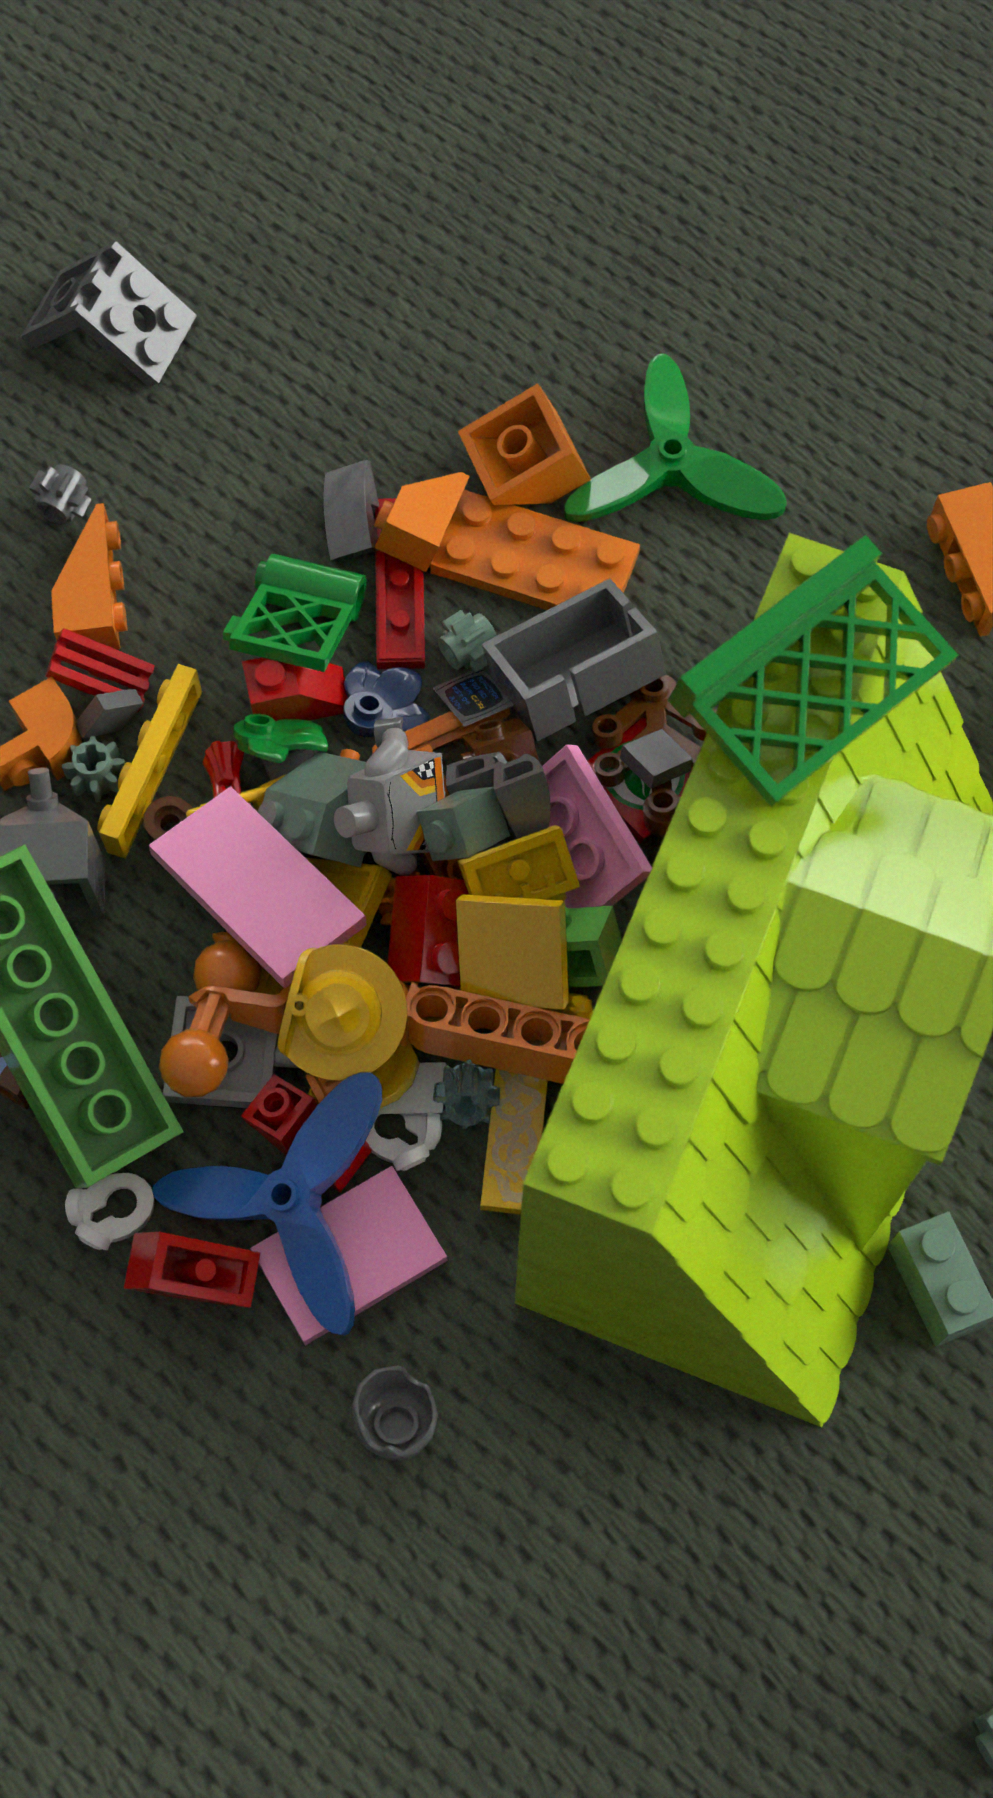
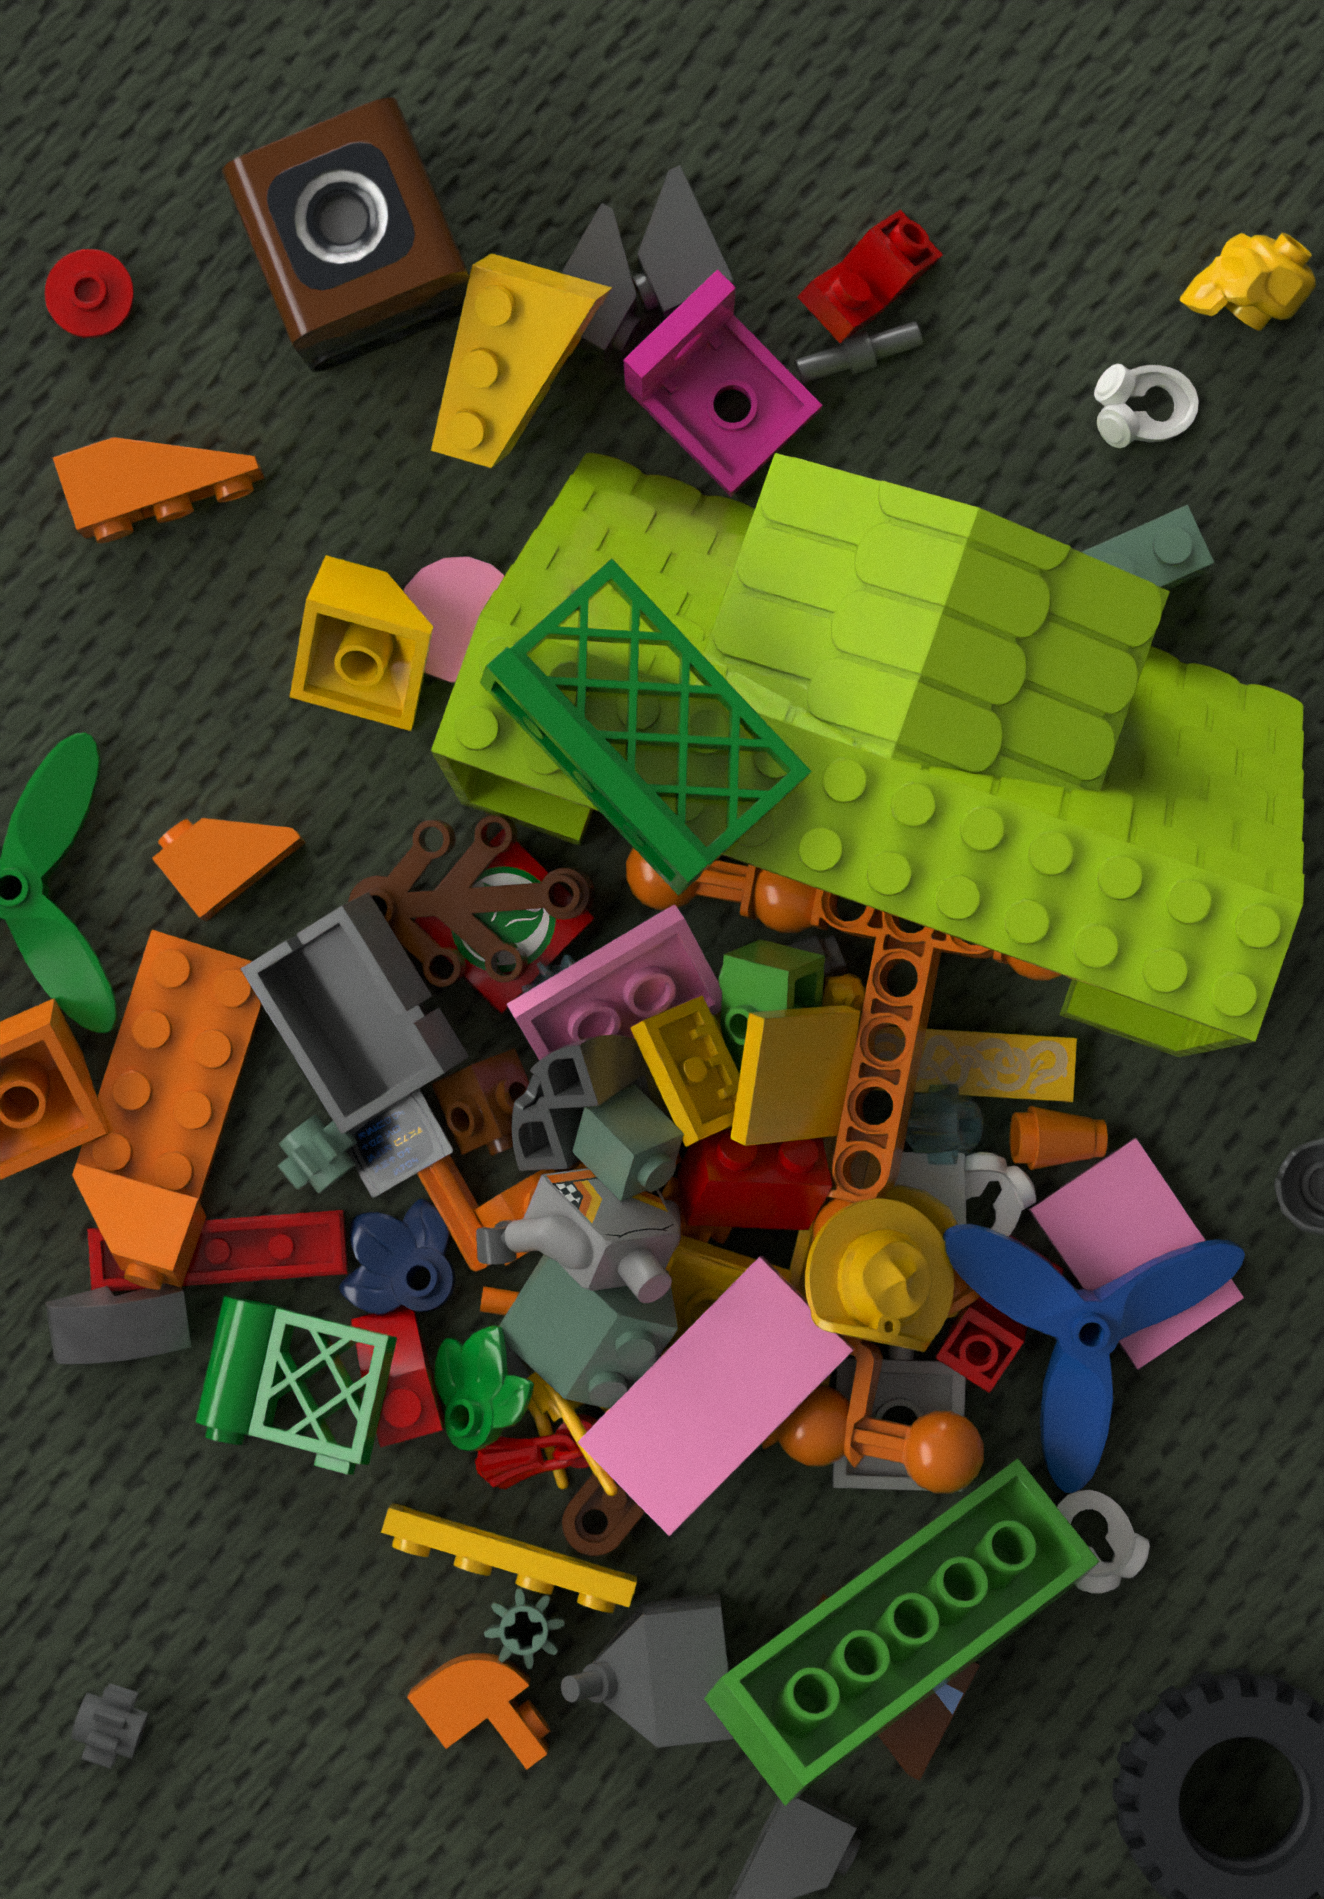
camera: 90 degrees left, 20 degrees up
(88, 584) = (267, 1669): orange slope -> none
(98, 661) = (393, 1586): red tile -> none
(108, 713) = (449, 1617): dark grey tile -> none
(191, 1269) = (1173, 1435): red slope -> none
(450, 1189) = (1055, 1138): none -> orange cone
(656, 758) = (499, 903): dark grey tile -> none
(689, 587) = (221, 859): none -> orange slope

